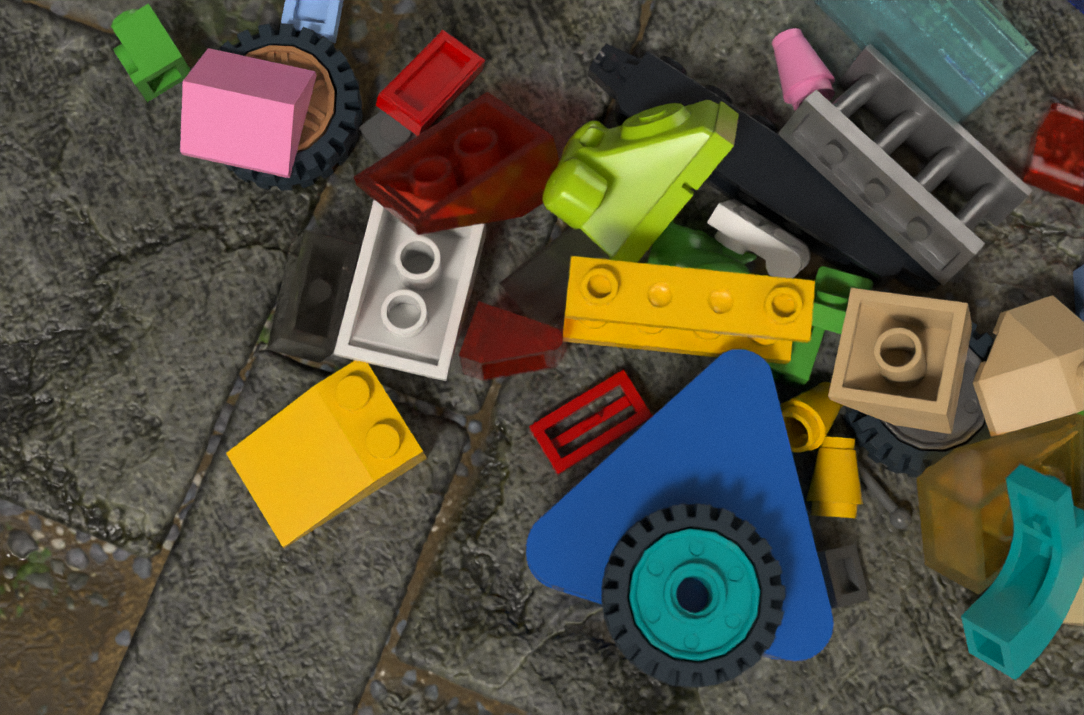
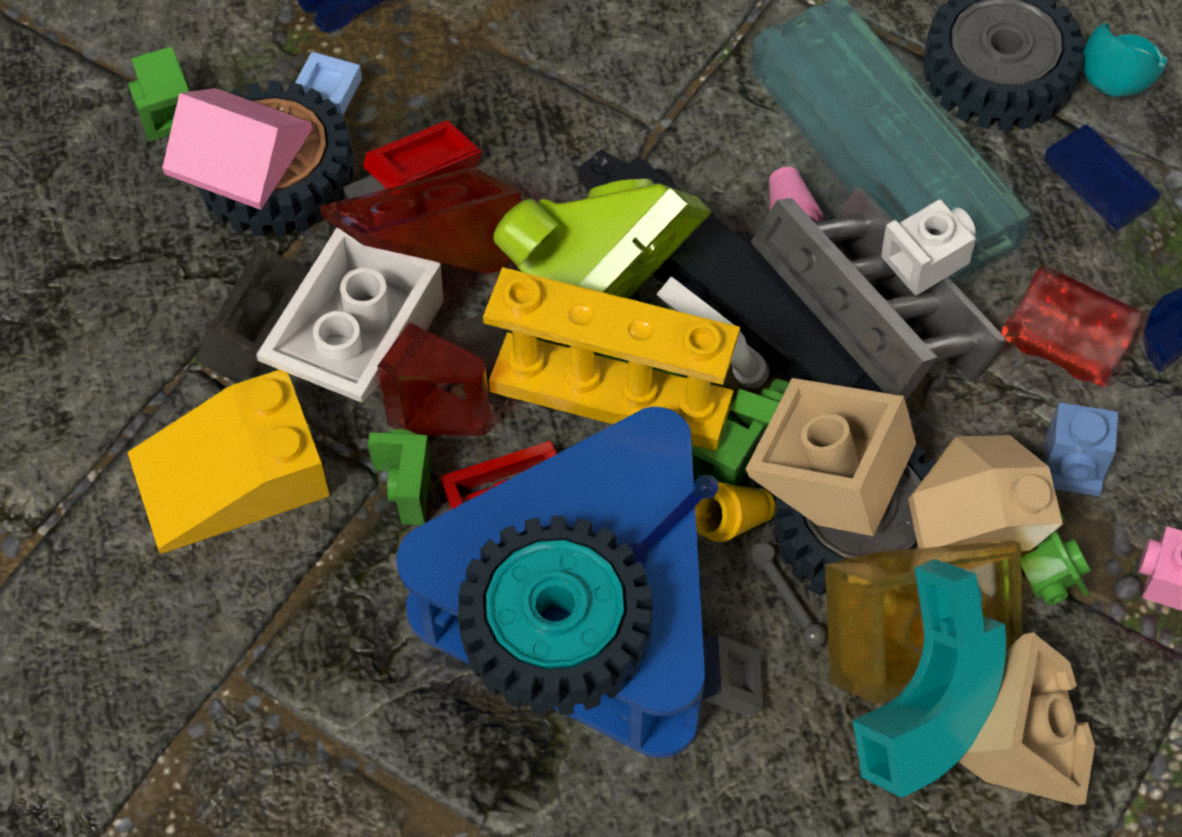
camera: 15 degrees right, 20 degrees down
(502, 439) = (409, 468): none -> bright green bracket
(797, 429) = (705, 488): none -> clear blue hinge
(835, 480) = (748, 582): yellow cone -> none
(939, 122) = (929, 245): none -> white brick

